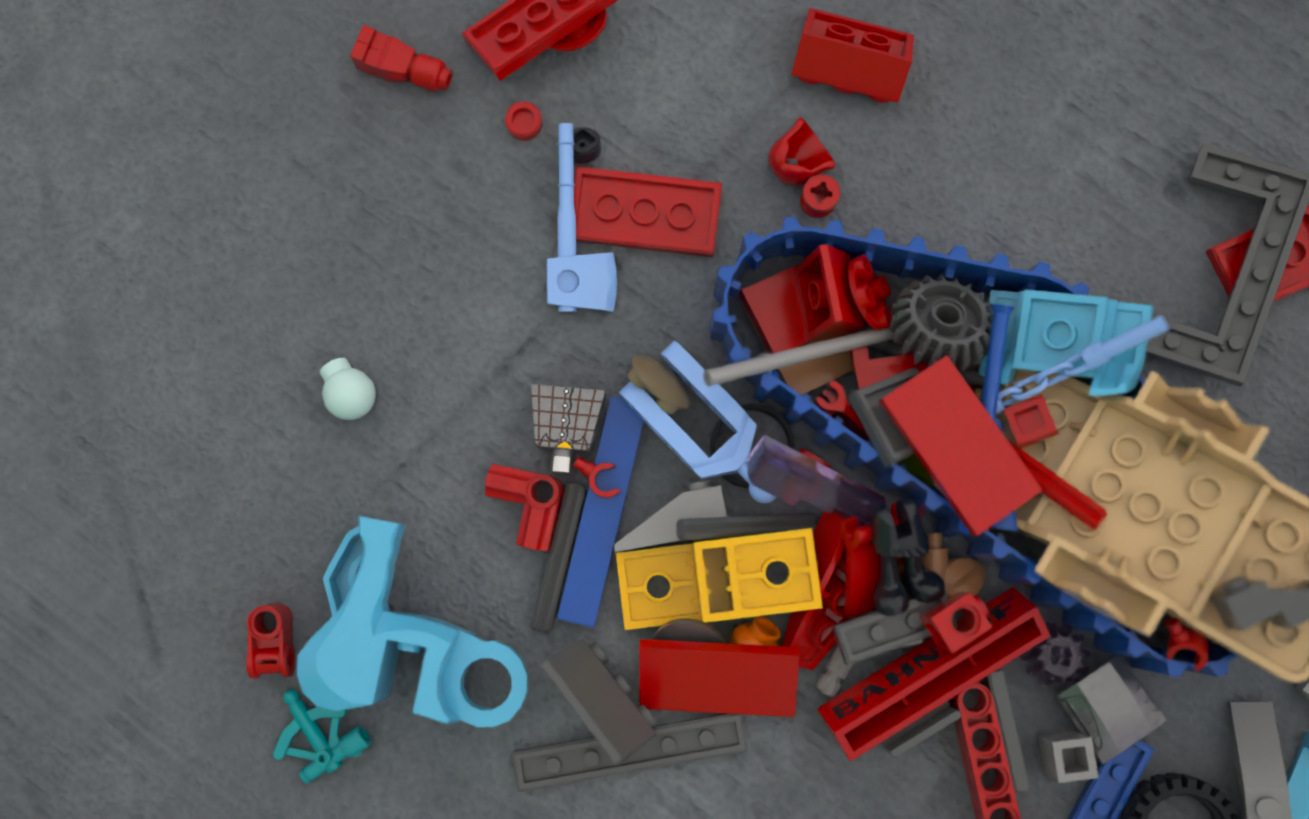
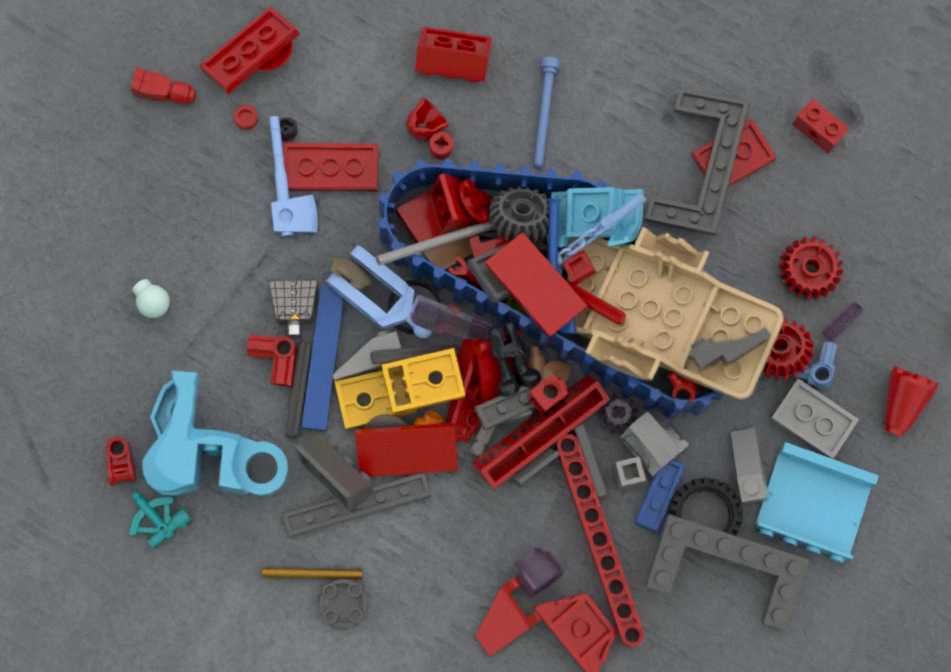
camera: 15 degrees left, 5 degrees down
(591, 471) = (313, 332): red piece -> none
(999, 90) = (549, 66): none -> medium blue piece

